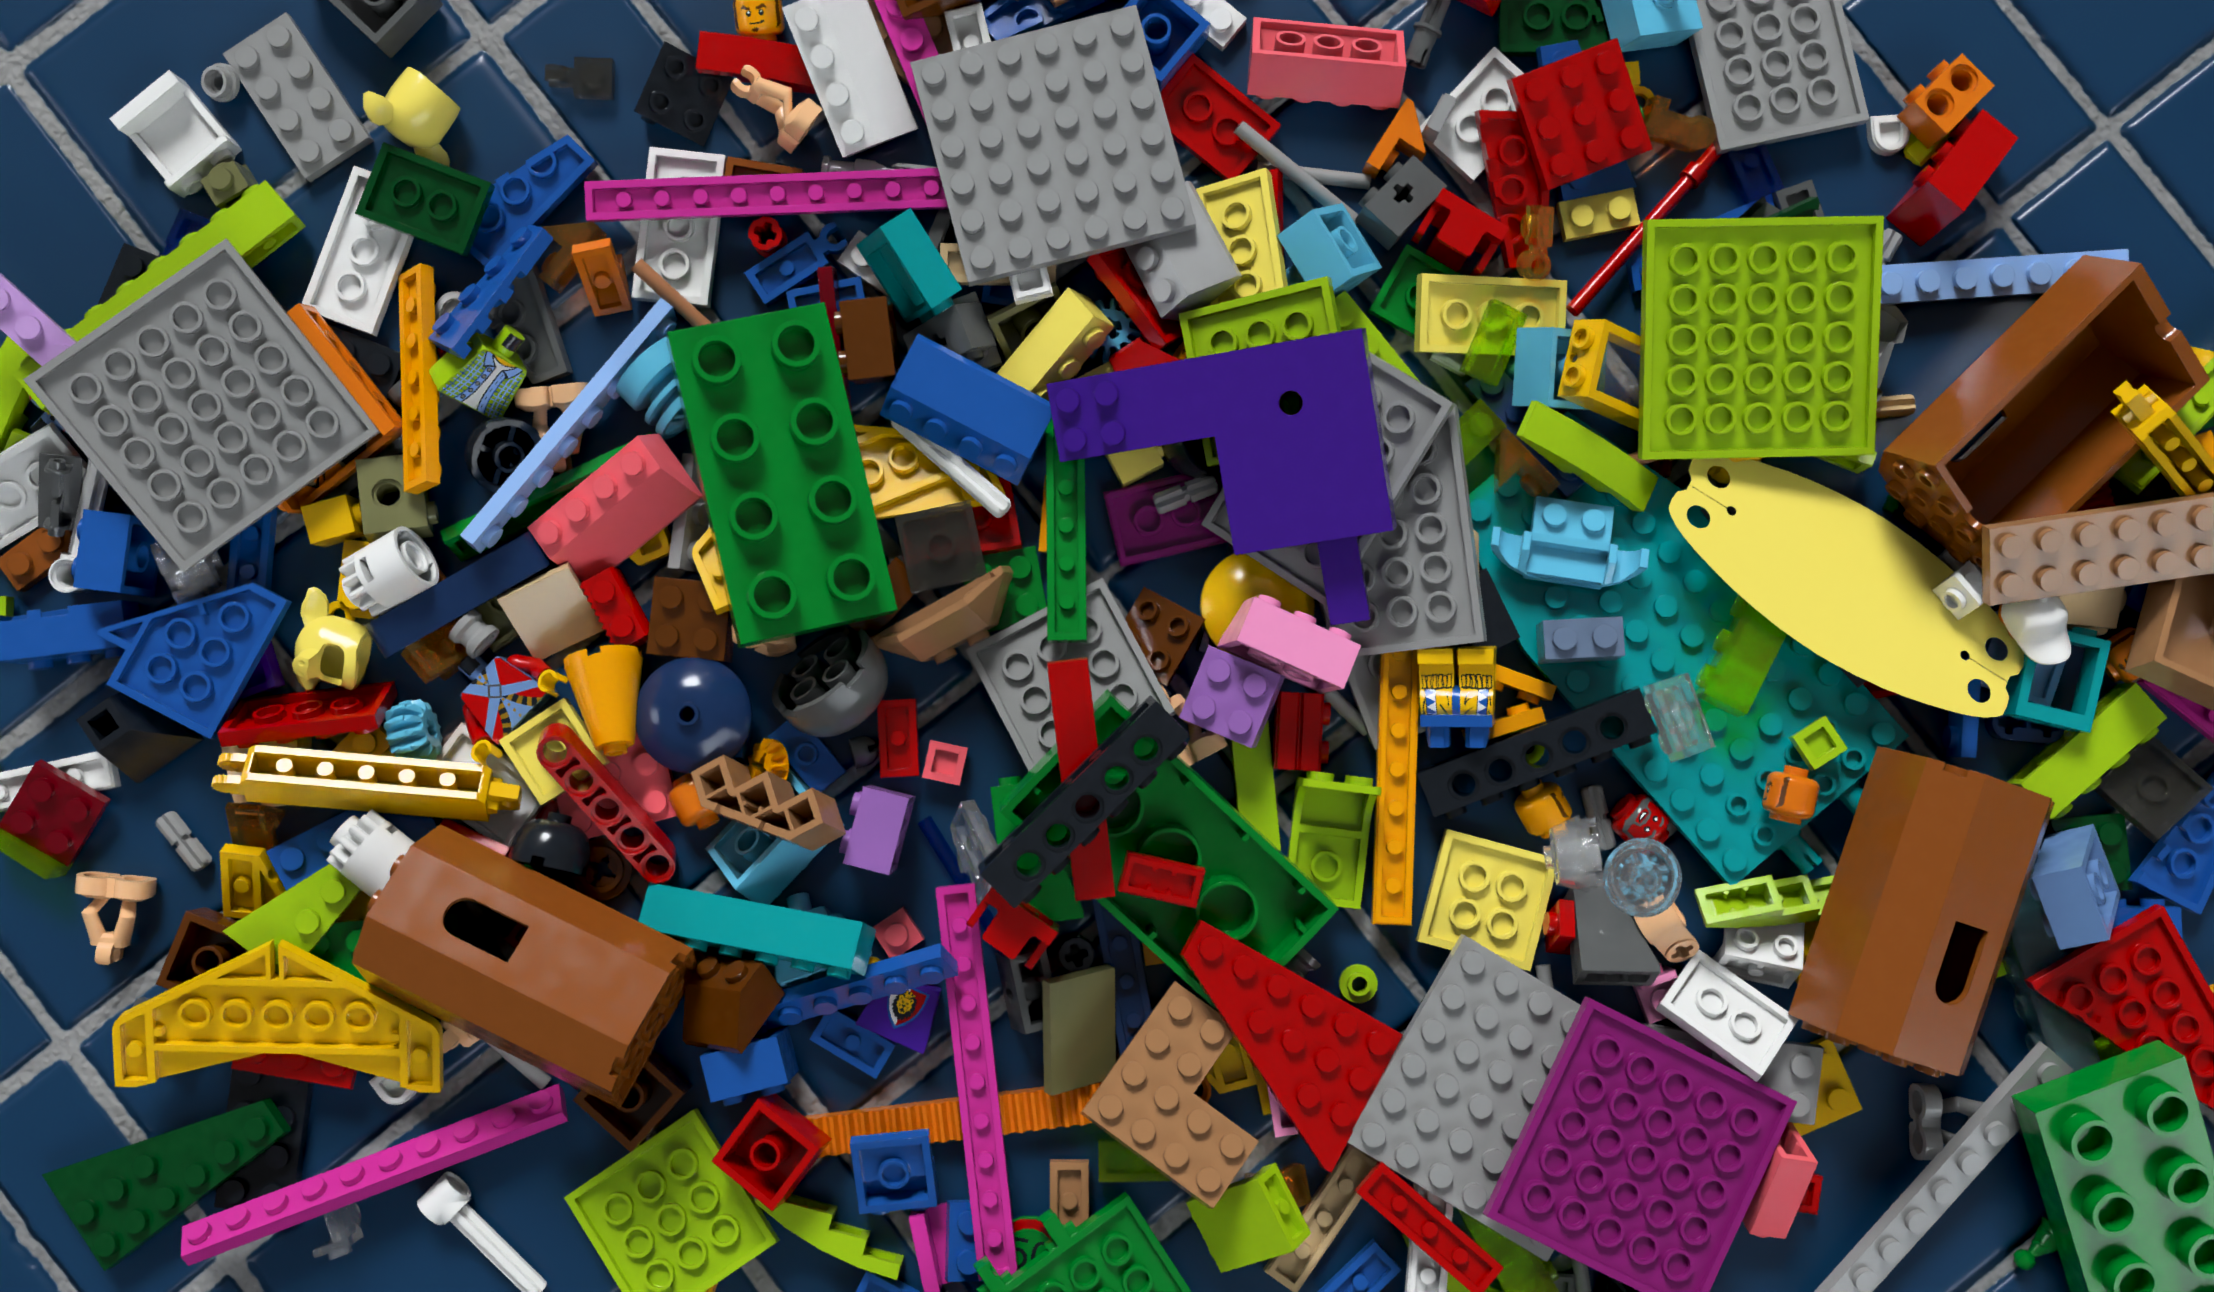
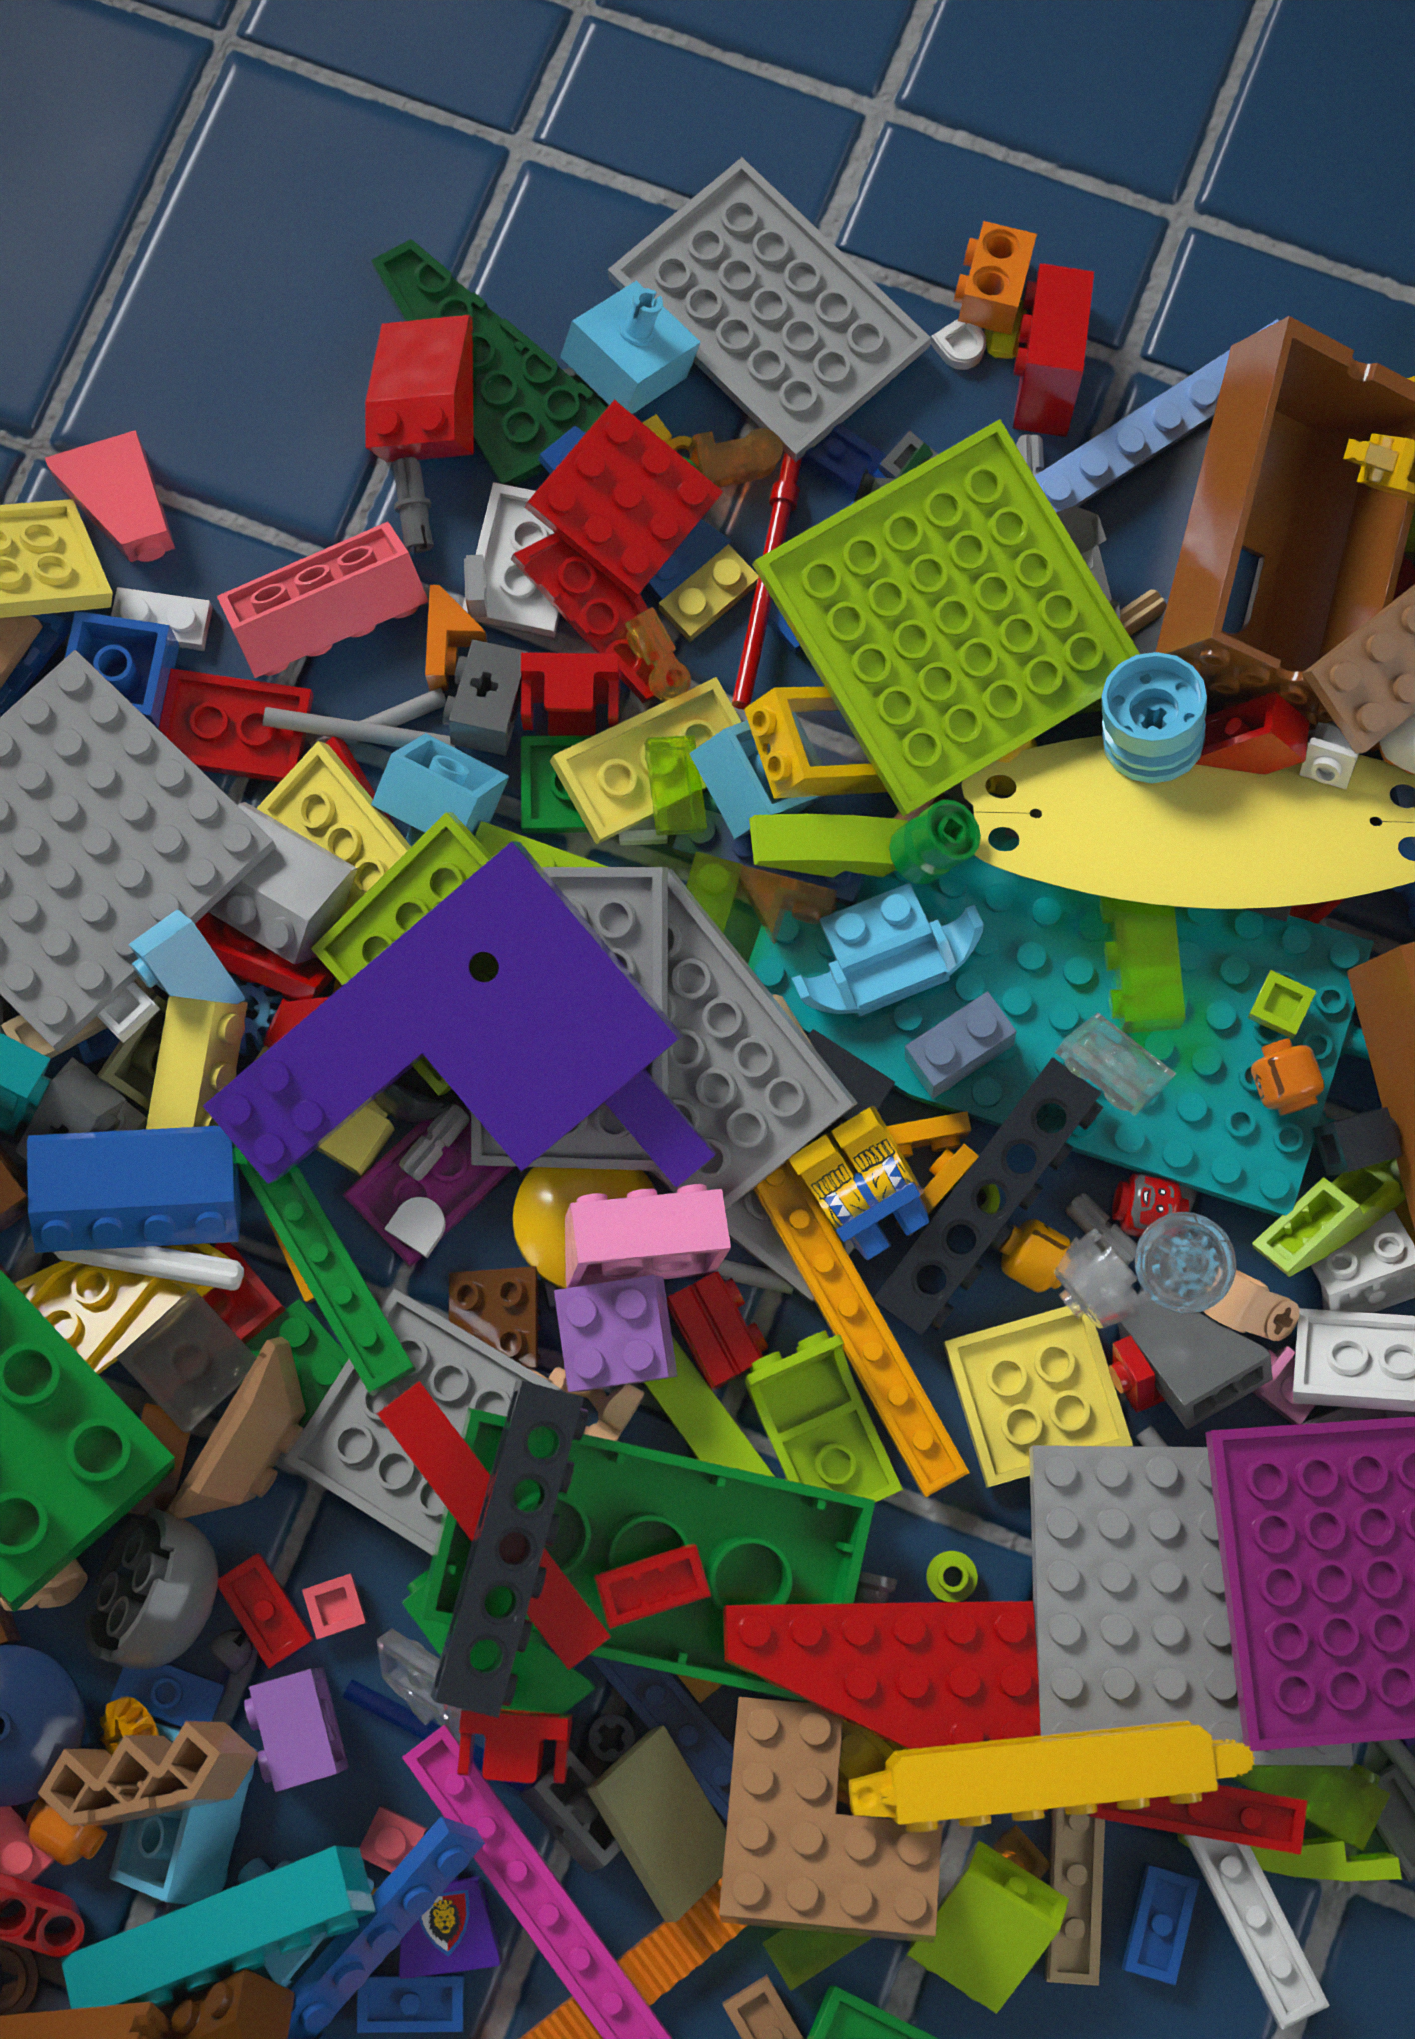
camera: 30 degrees left, 10 degrees down
(1087, 274) = (182, 962): none -> medium azure slope
(1142, 543) = (418, 1224): none -> white tile
(1347, 1151) = (1048, 1773): none -> yellow hinge
(1649, 491) = (935, 842): none -> green wheel
(1810, 866) = (1358, 1141): none -> black brick
(1856, 492) = (1154, 717): none -> medium azure wheel
(1916, 545) = (1256, 736): none -> red slope

